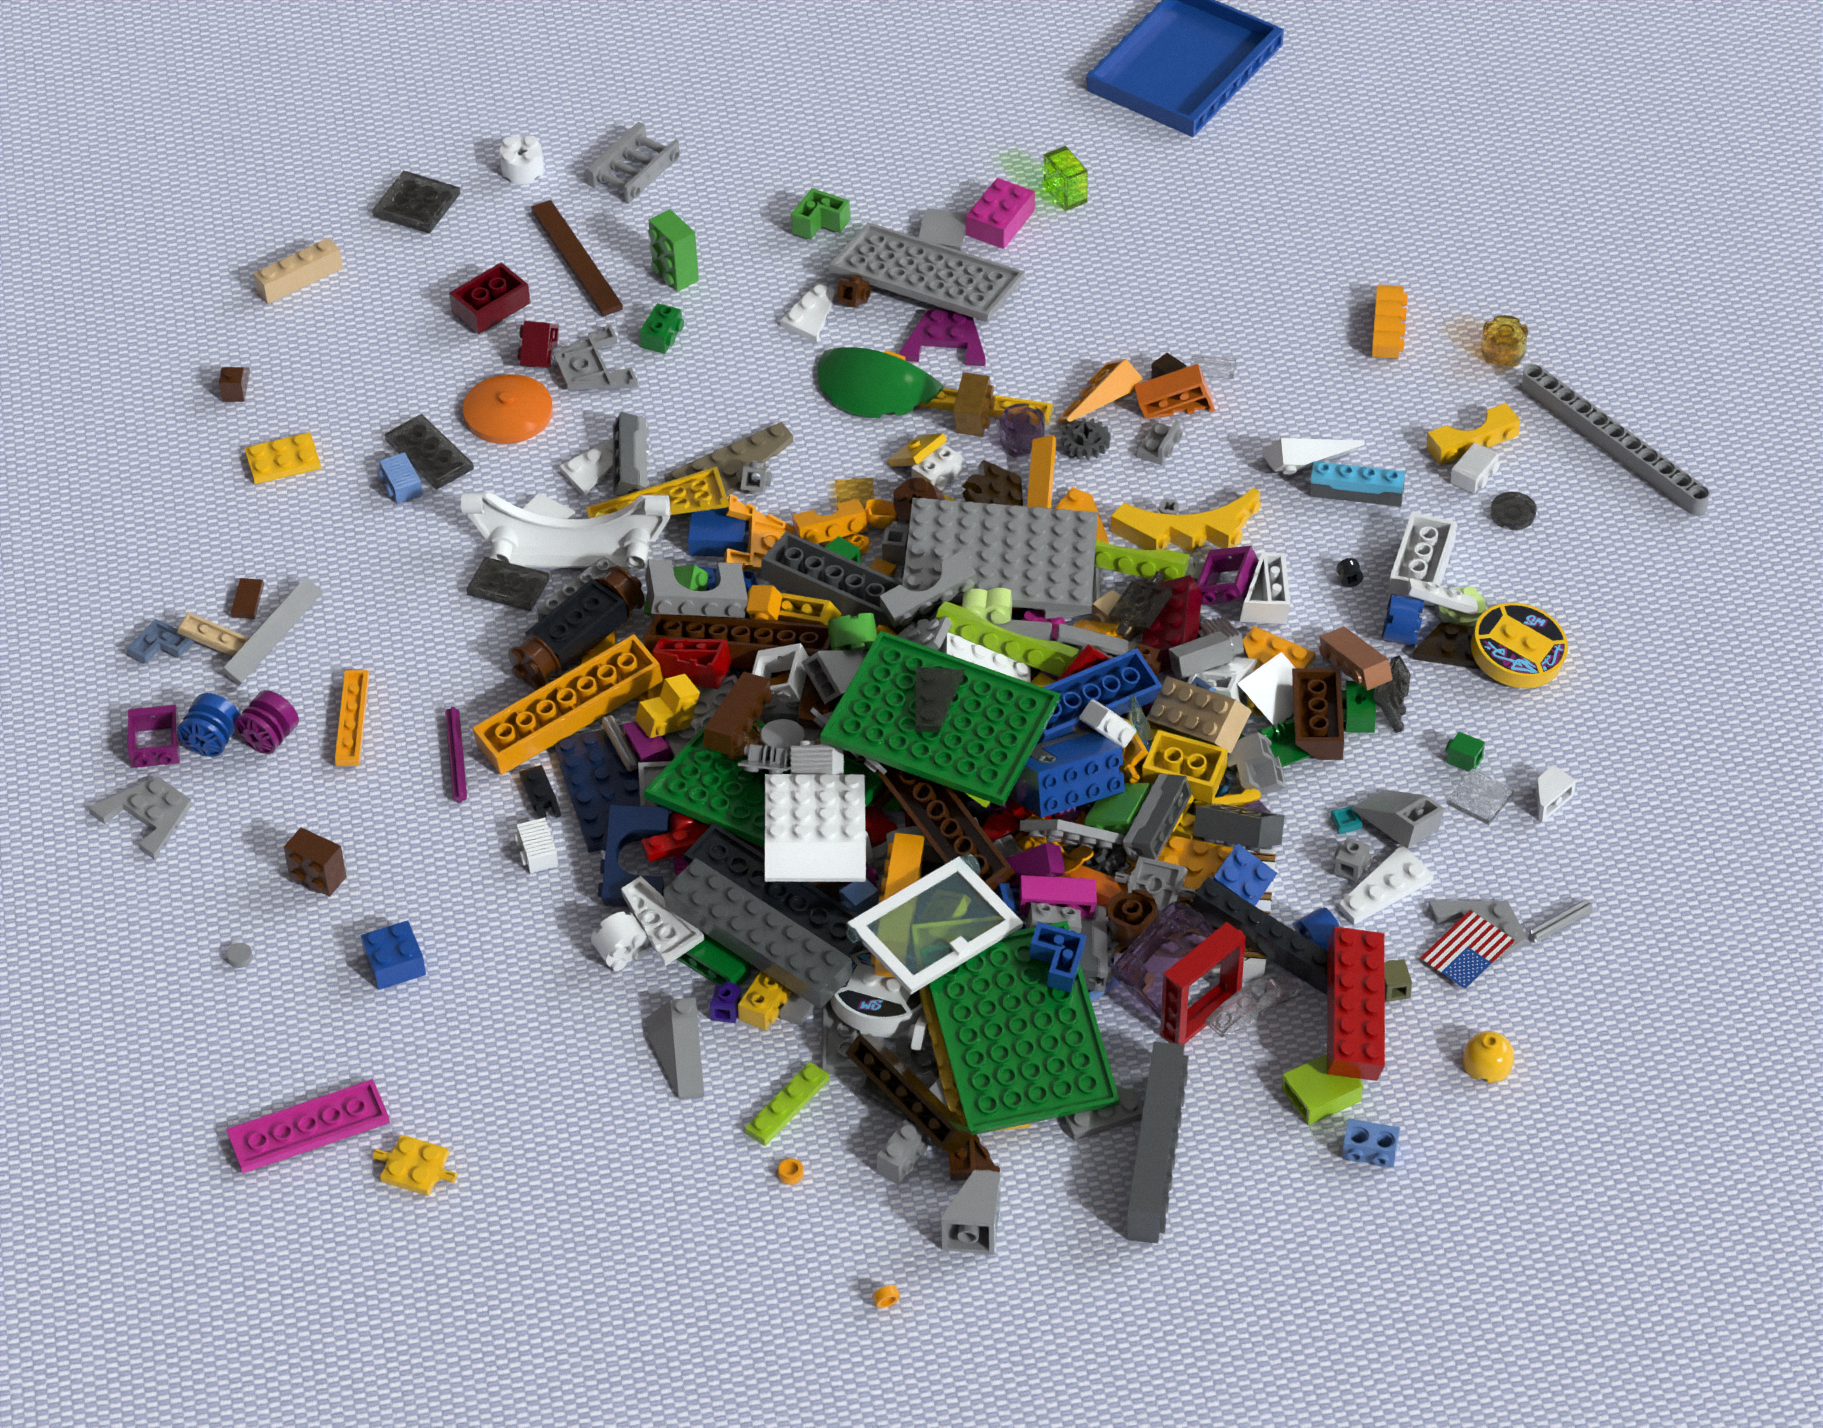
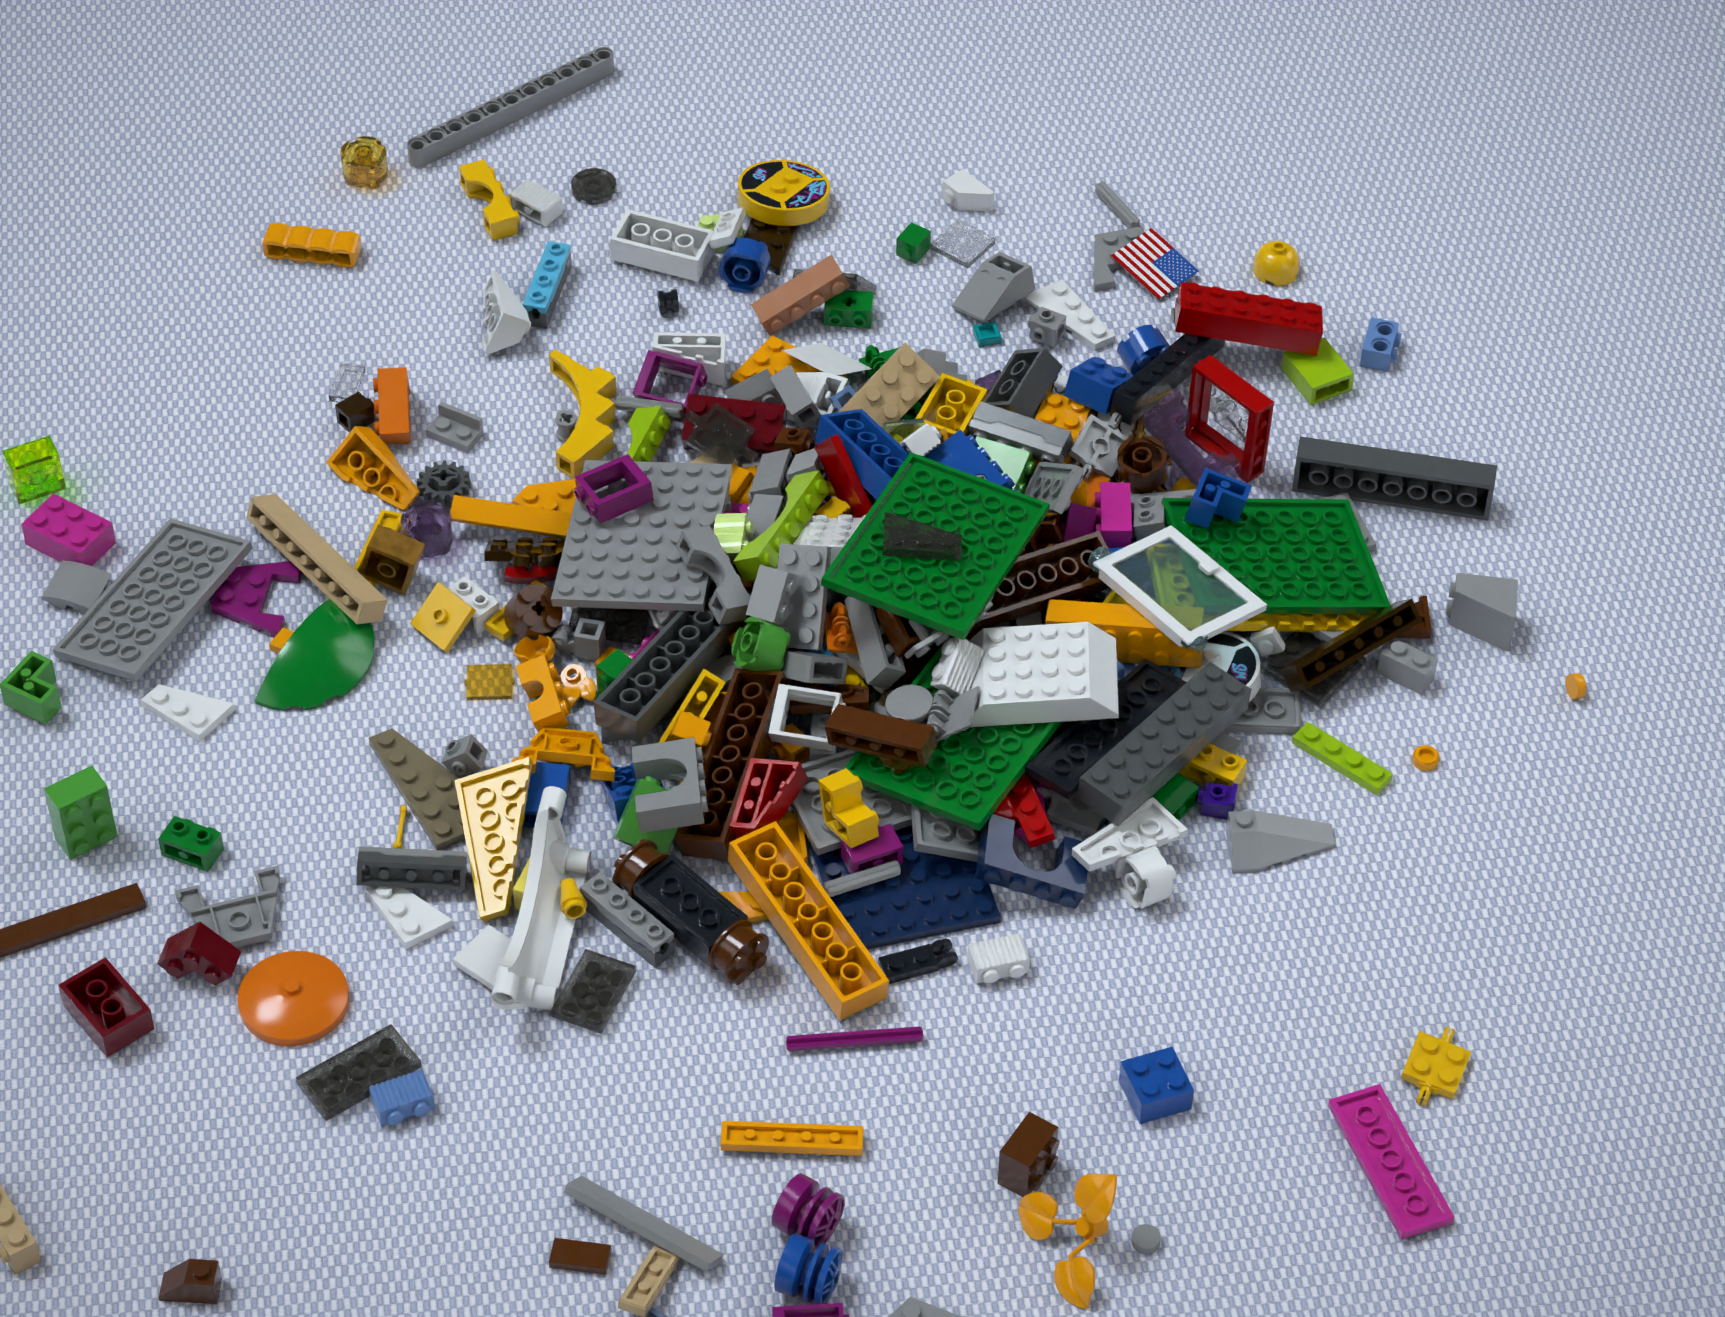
camera: 90 degrees left, 0 degrees up
(245, 908) = (1037, 1215): none -> light orange plant
(282, 458) = (338, 1229): yellow plate -> none
(591, 554) = (572, 900): none -> yellow cone
(667, 454) = (403, 812): none -> yellow hinge
(853, 291) = (173, 662): reddish brown brick -> none
(896, 619) = (771, 595): none -> light grey brick
(977, 359) = (316, 559): none -> tan brick
(1010, 834) = (1045, 534): none -> reddish brown bracket
(1041, 539) = (616, 504): none -> magenta window
(1195, 559) = (630, 404): none -> light grey axle
(1318, 712) = (862, 325): reddish brown slope -> none

